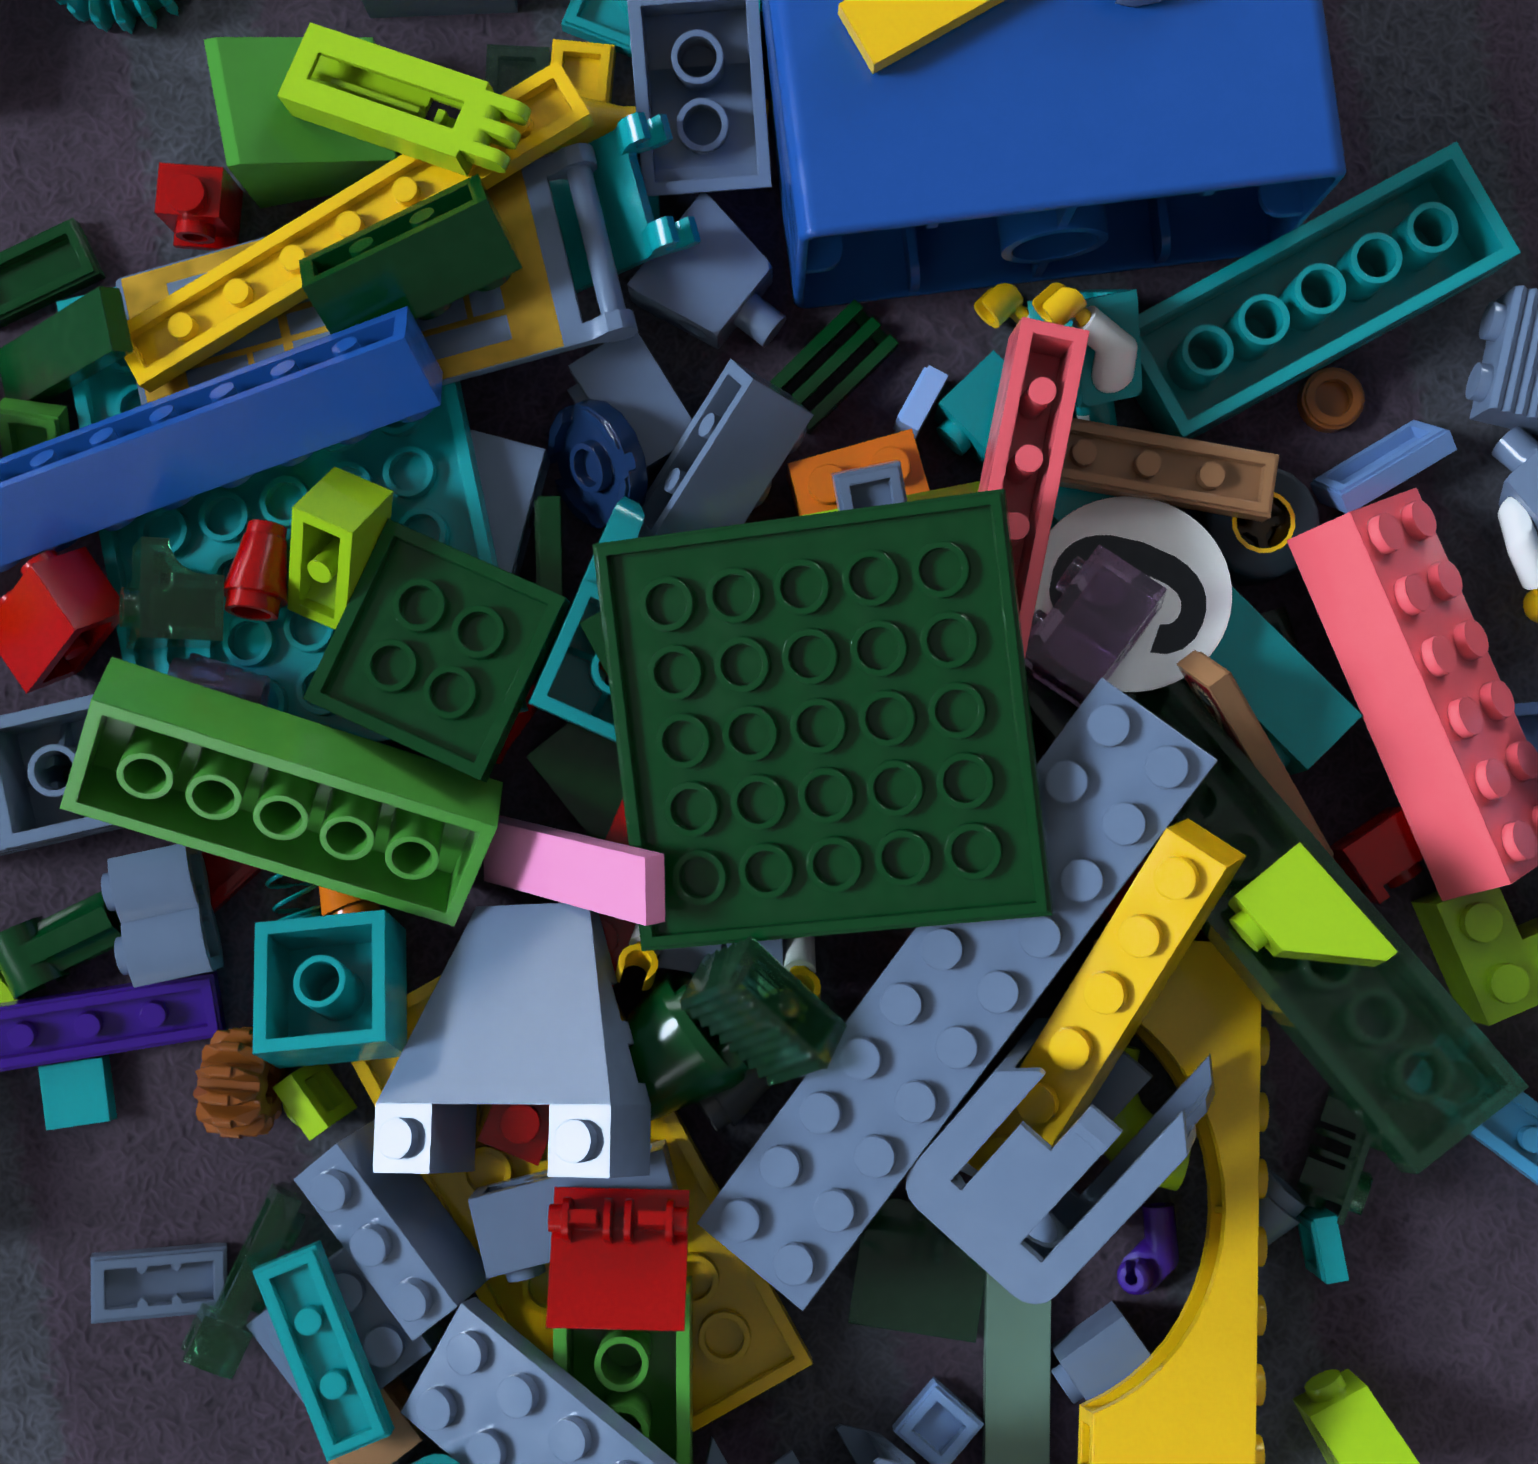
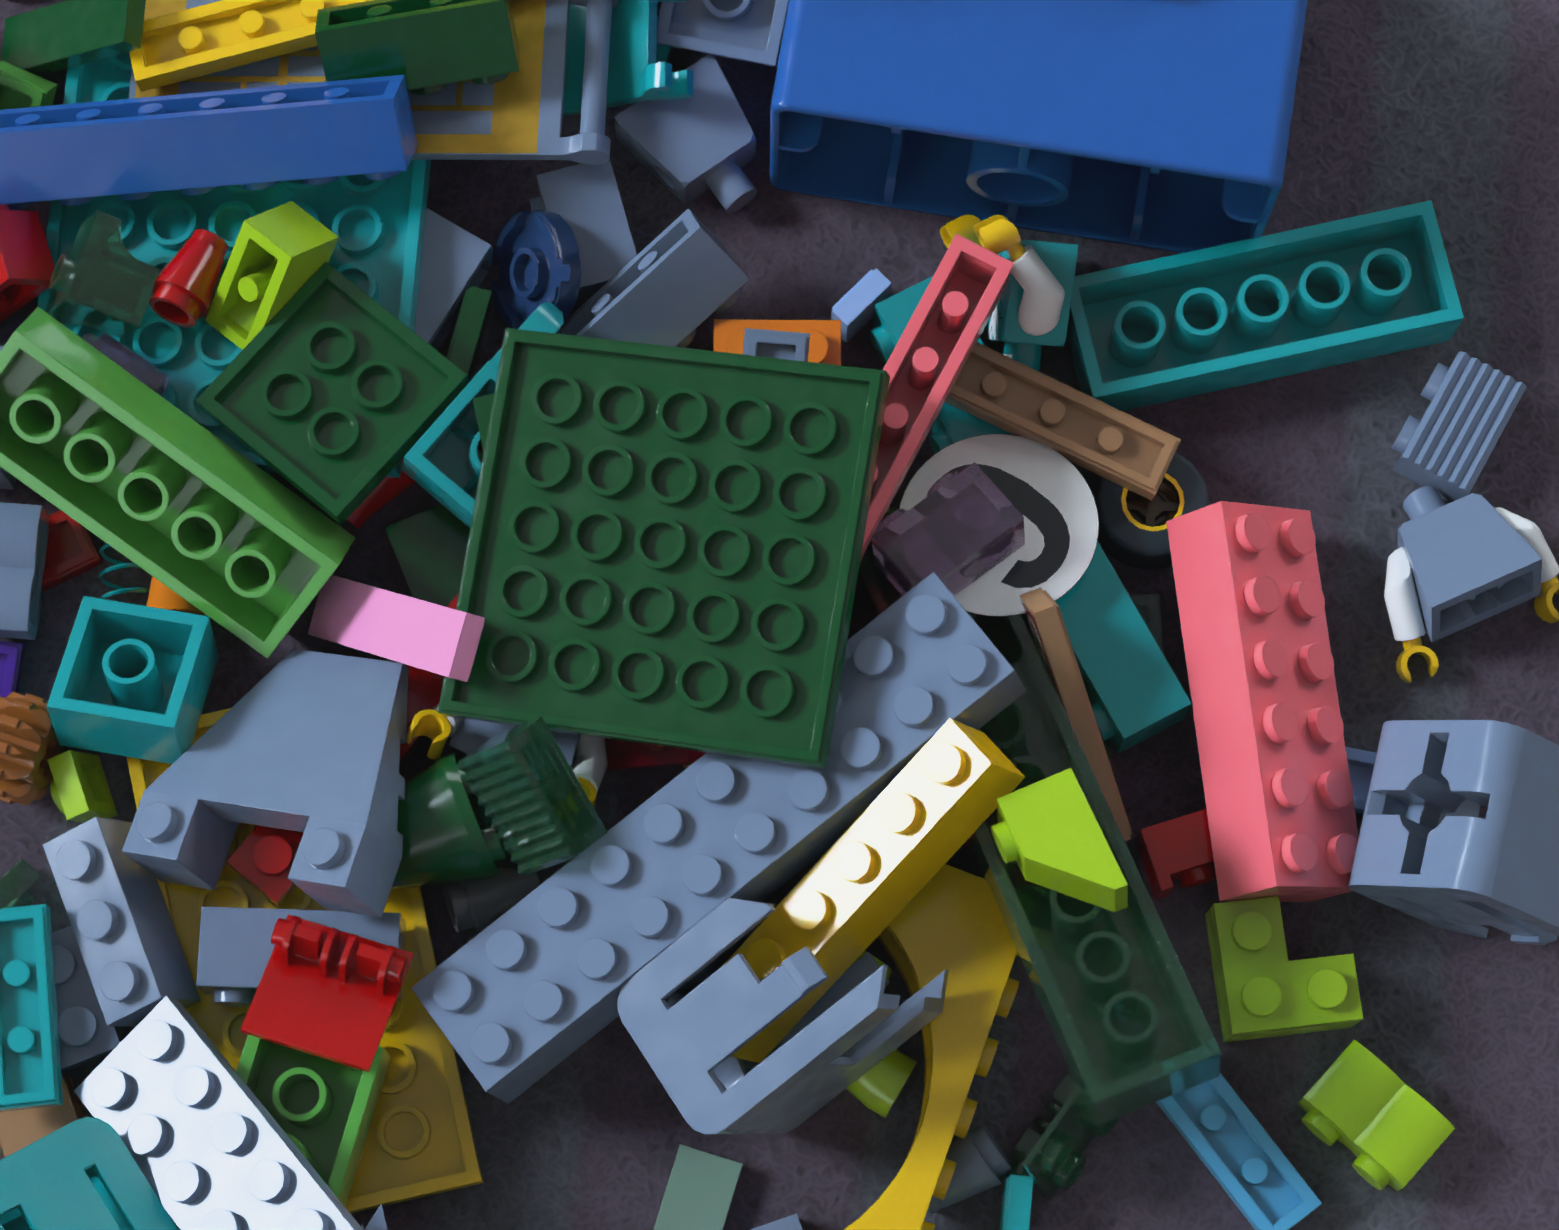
camera: 20 degrees right, 10 degrees down
(868, 330) = (834, 225): dark green tile -> none
(915, 1277) = (612, 1128): clear green hinge -> none
(1155, 1254) = (850, 1181): dark purple arm -> none
(1330, 400) = (1260, 413): dark orange tile -> none
(1382, 466) = (1293, 483): medium blue tile -> none

